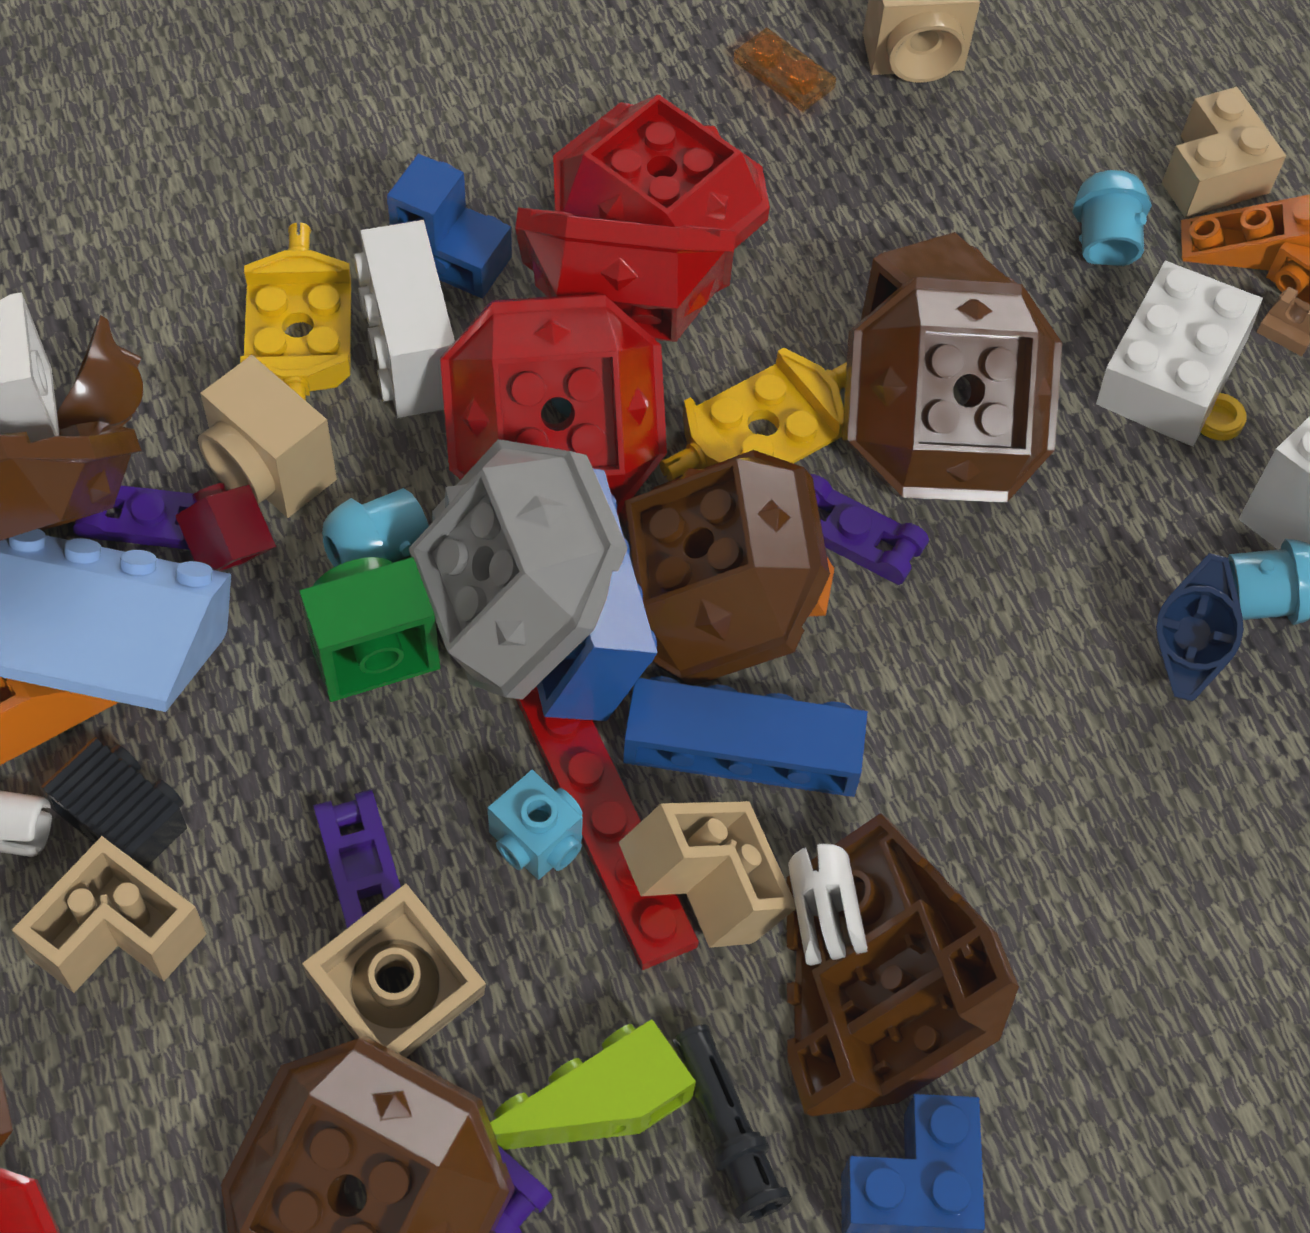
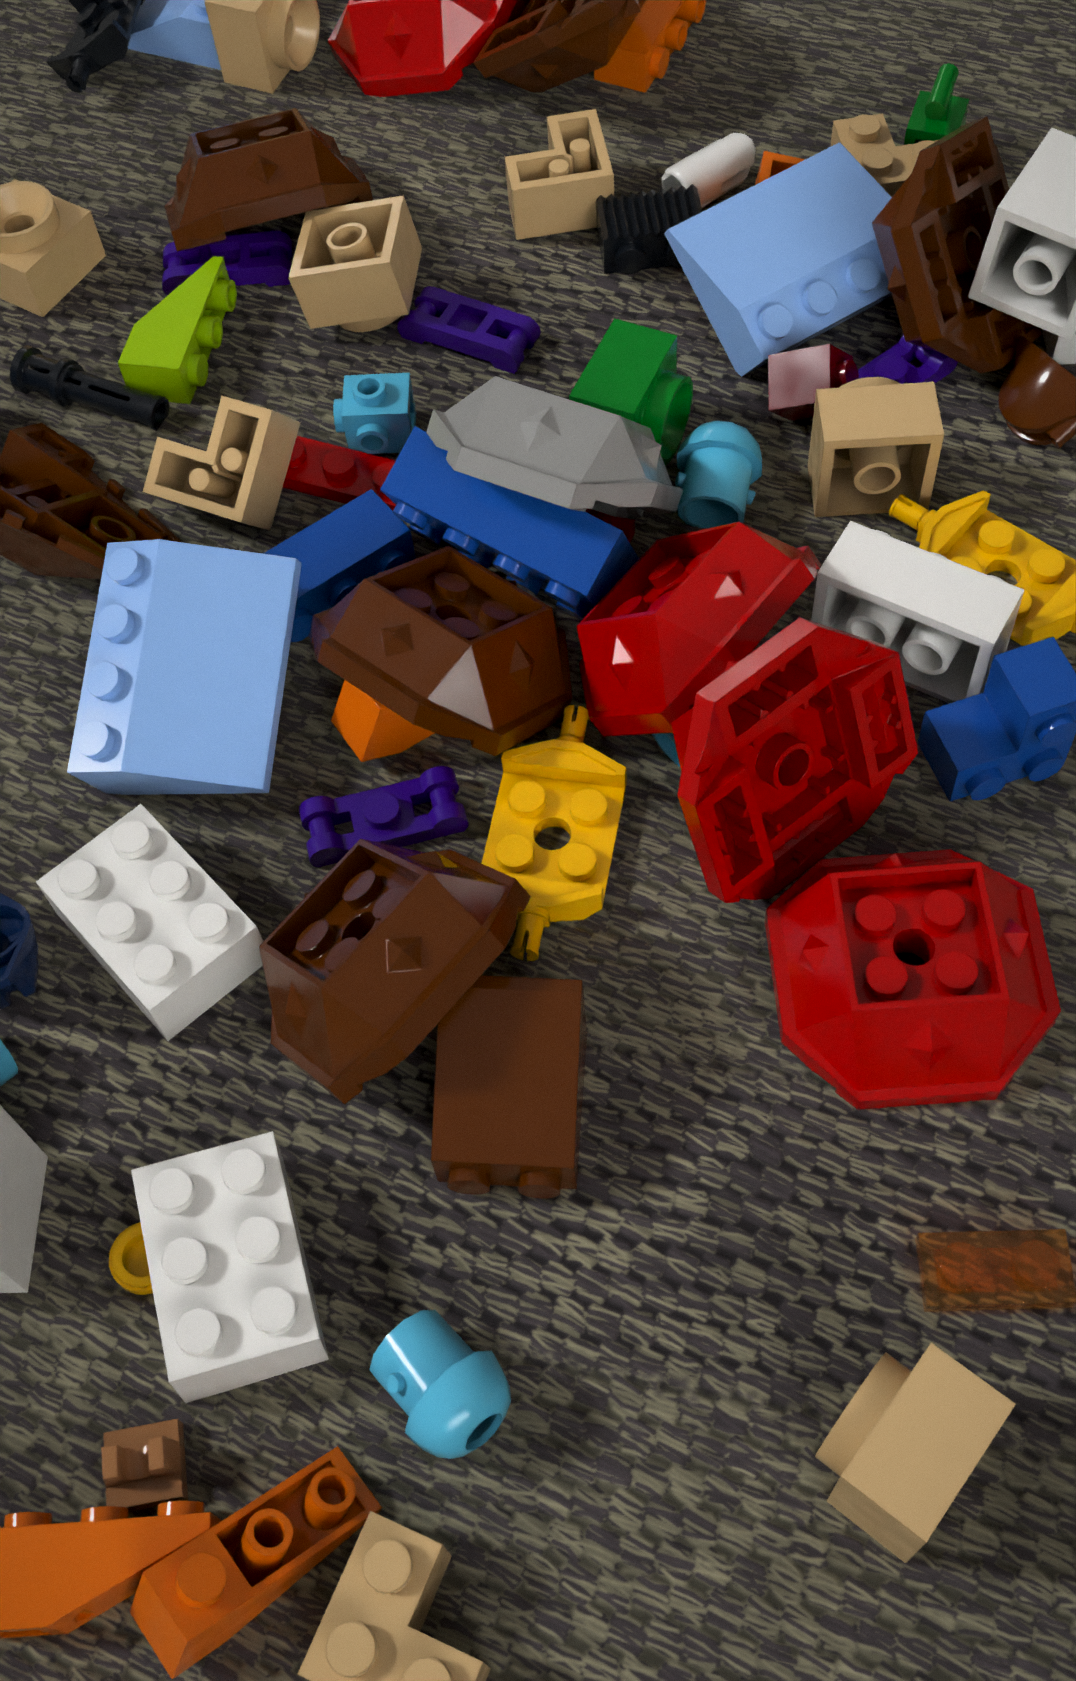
camera: 145 degrees right, 0 degrees up
(824, 896) = (117, 494): white arm -> none
(904, 697) = (185, 670): none -> light blue slope
(1069, 573) = (154, 920): none -> white brick

